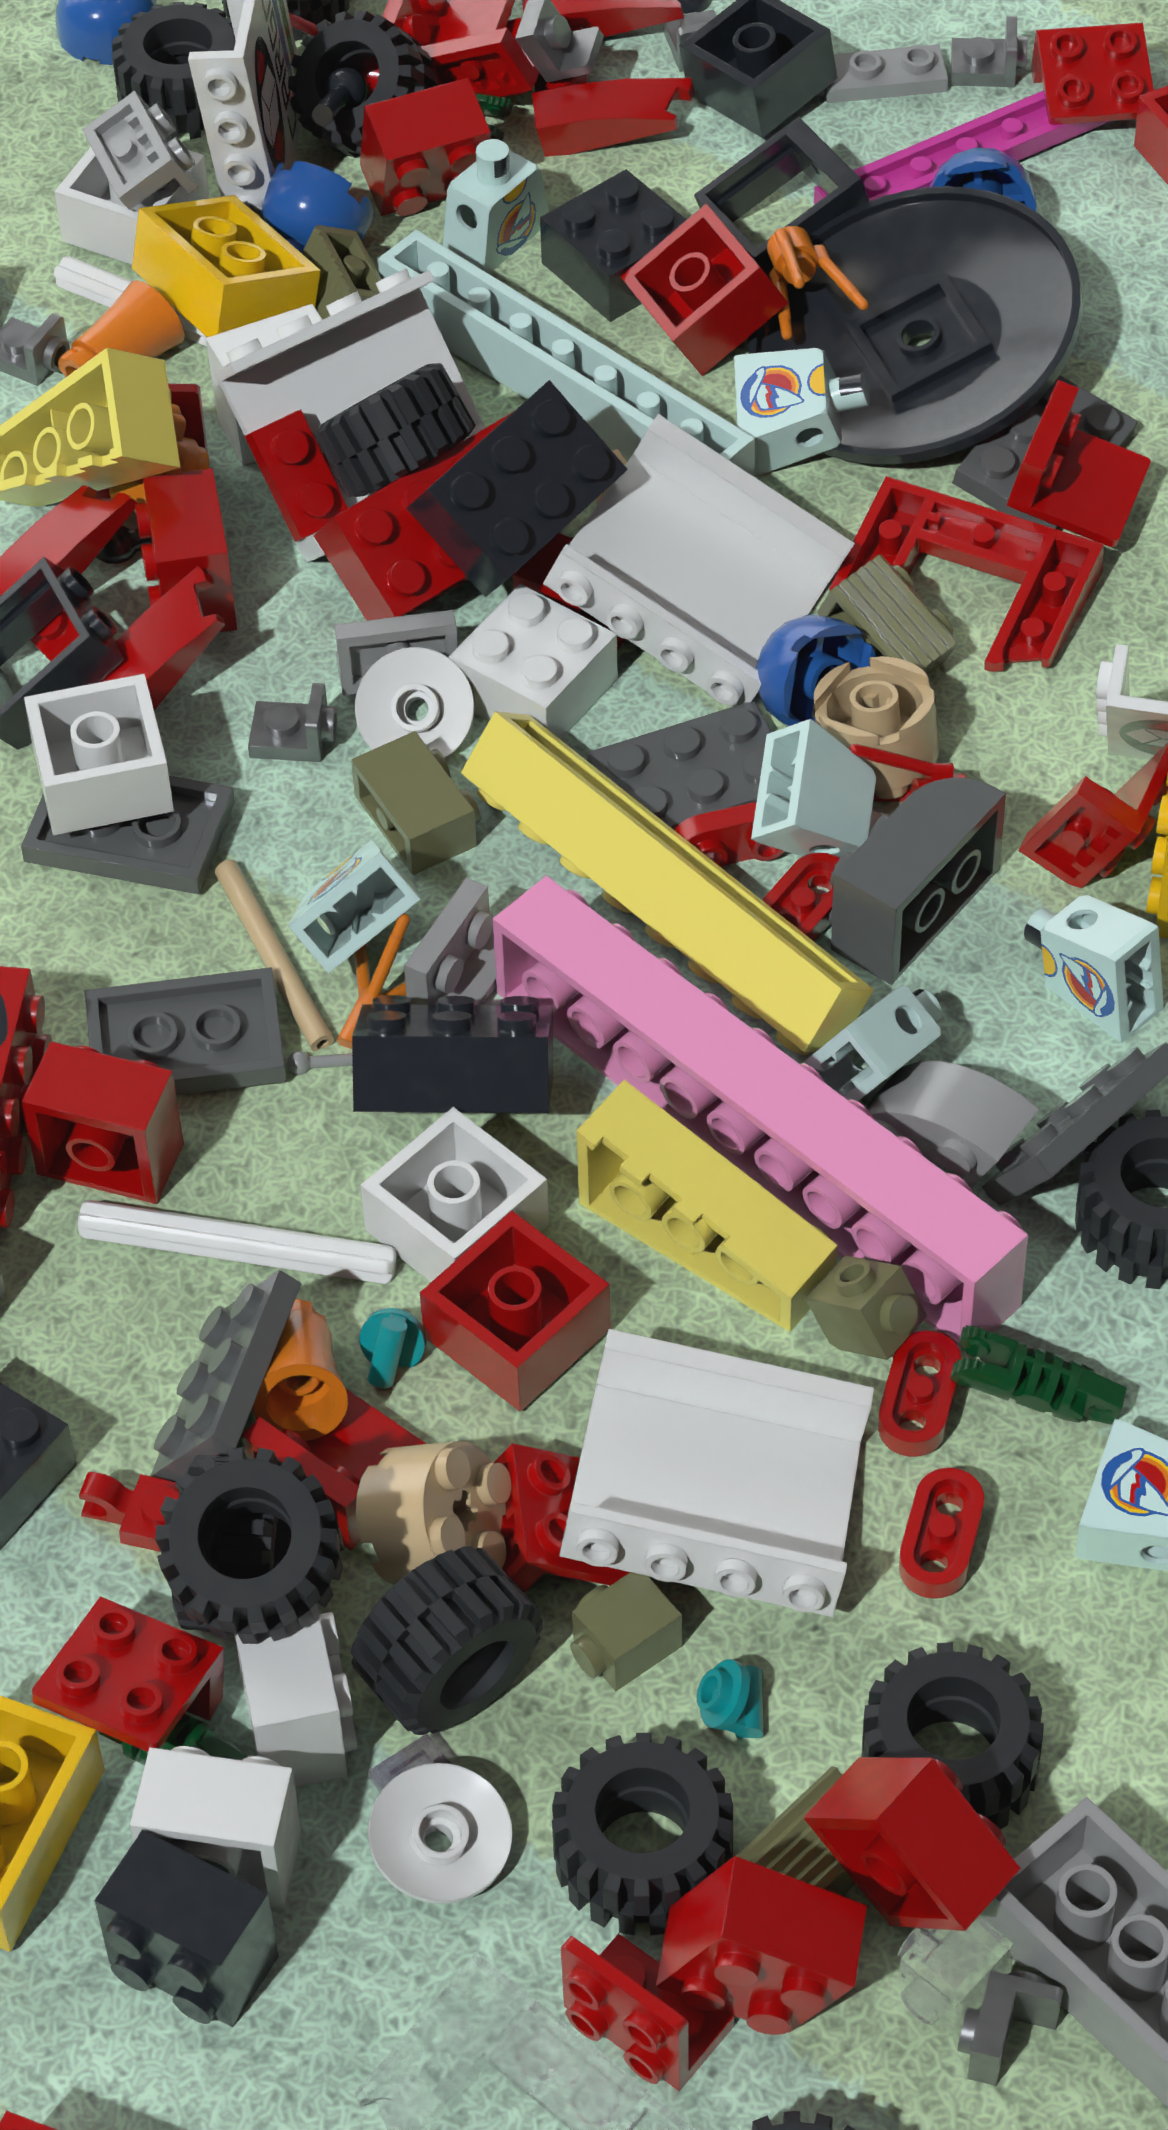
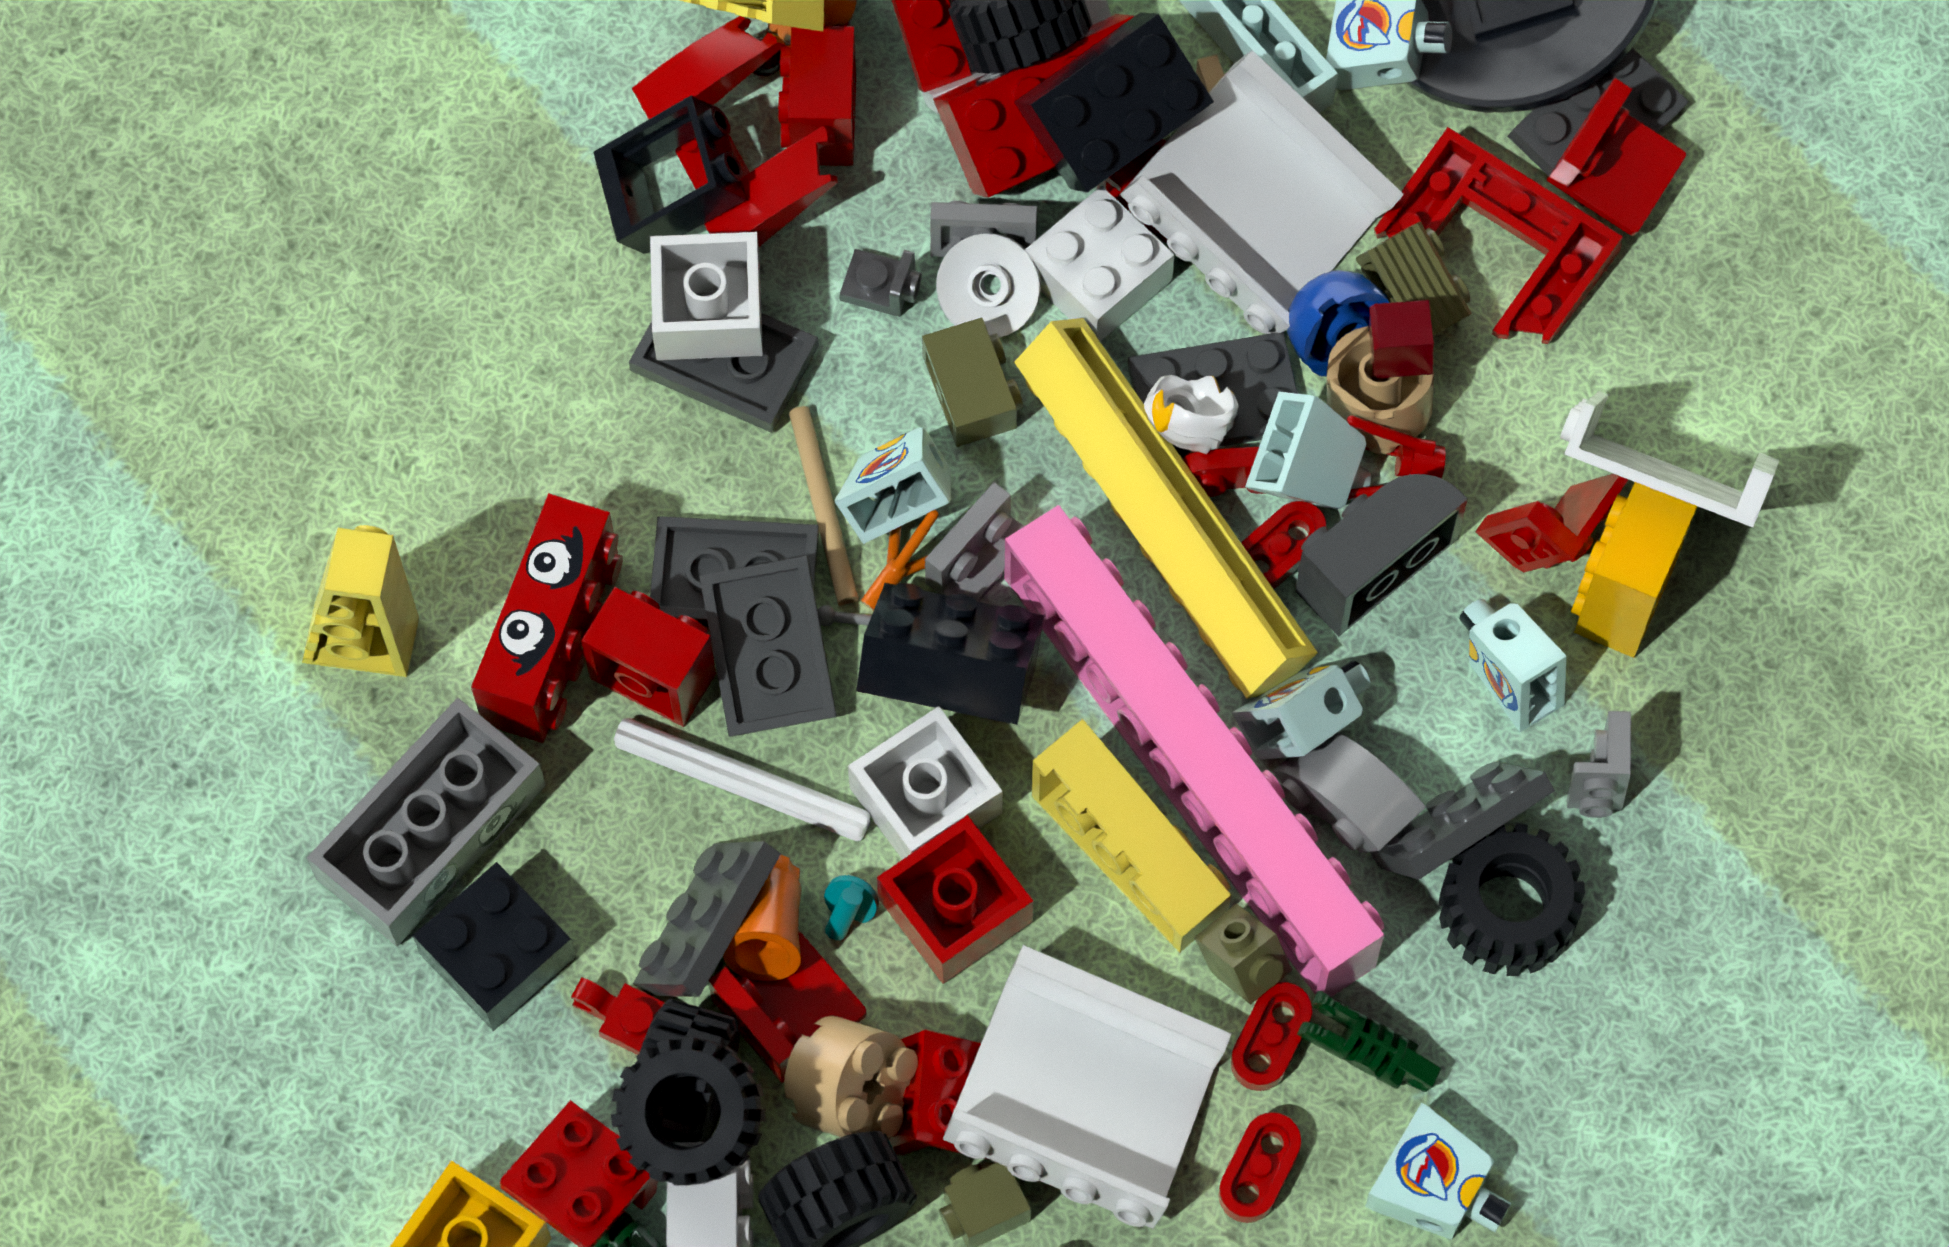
camera: 10 degrees right, 15 degrees up
(241, 1092) = (768, 646): none -> dark grey plate
(673, 780) = (1191, 412): none -> white hair
(891, 655) = (1401, 339): none -> dark red piece

